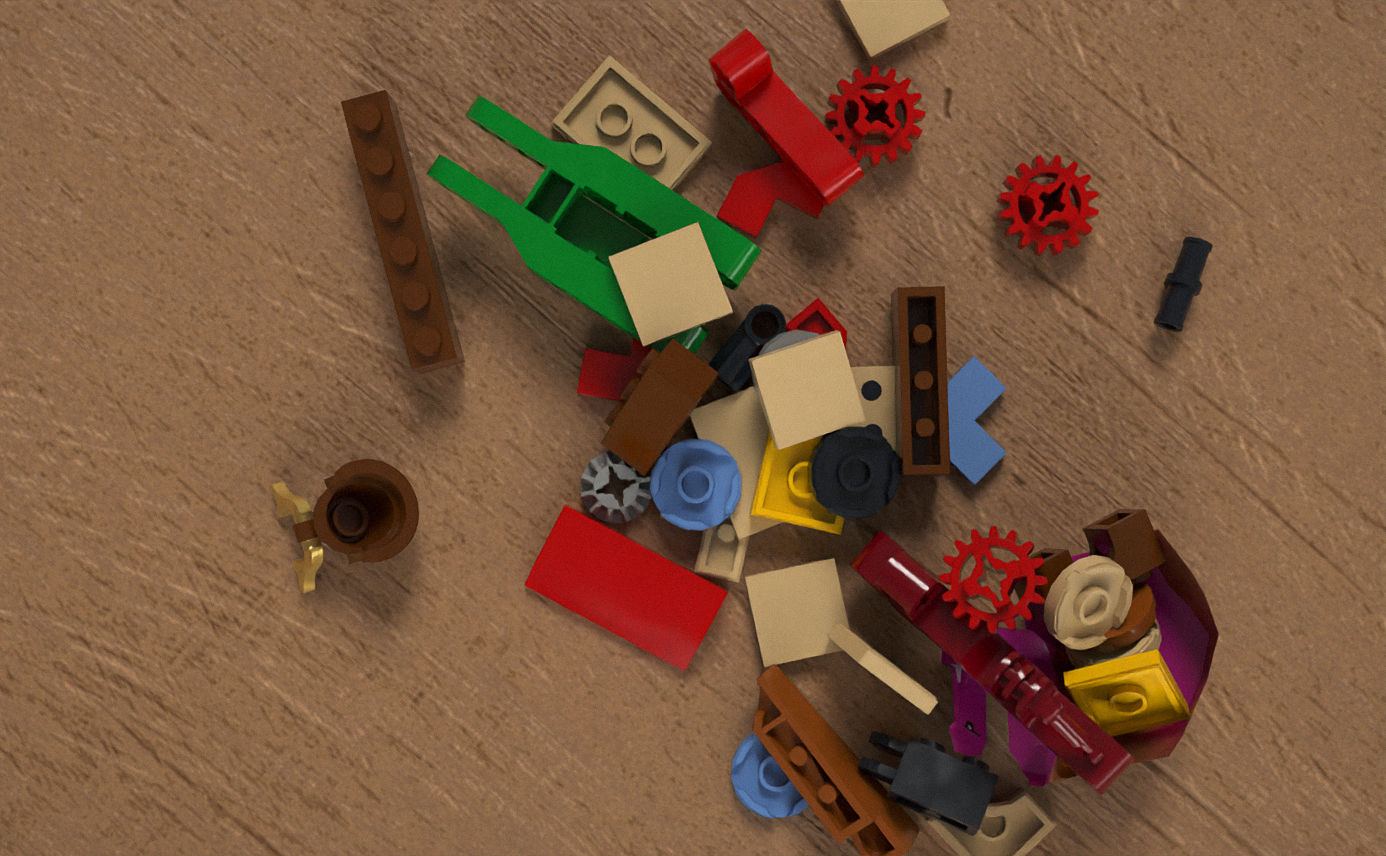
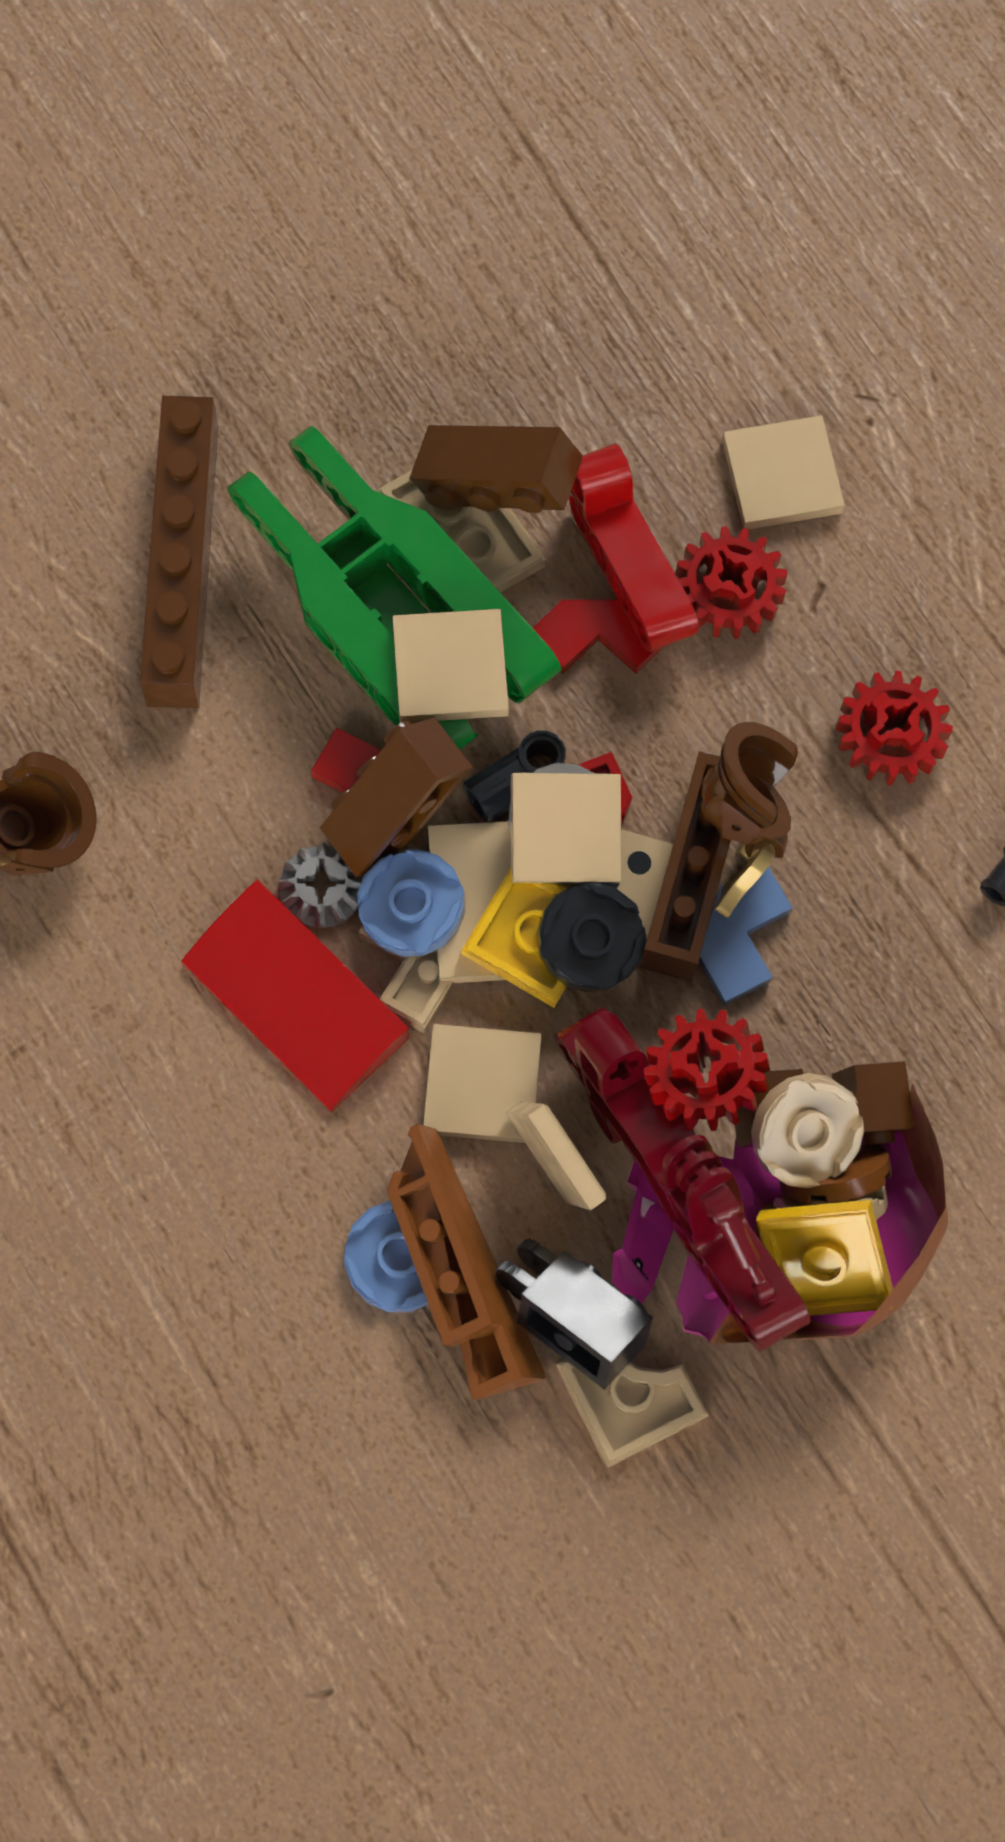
camera: 10 degrees right, 15 degrees down
(651, 84) = (496, 467): none -> reddish brown brick
(957, 330) = (745, 803): none -> reddish brown helmet

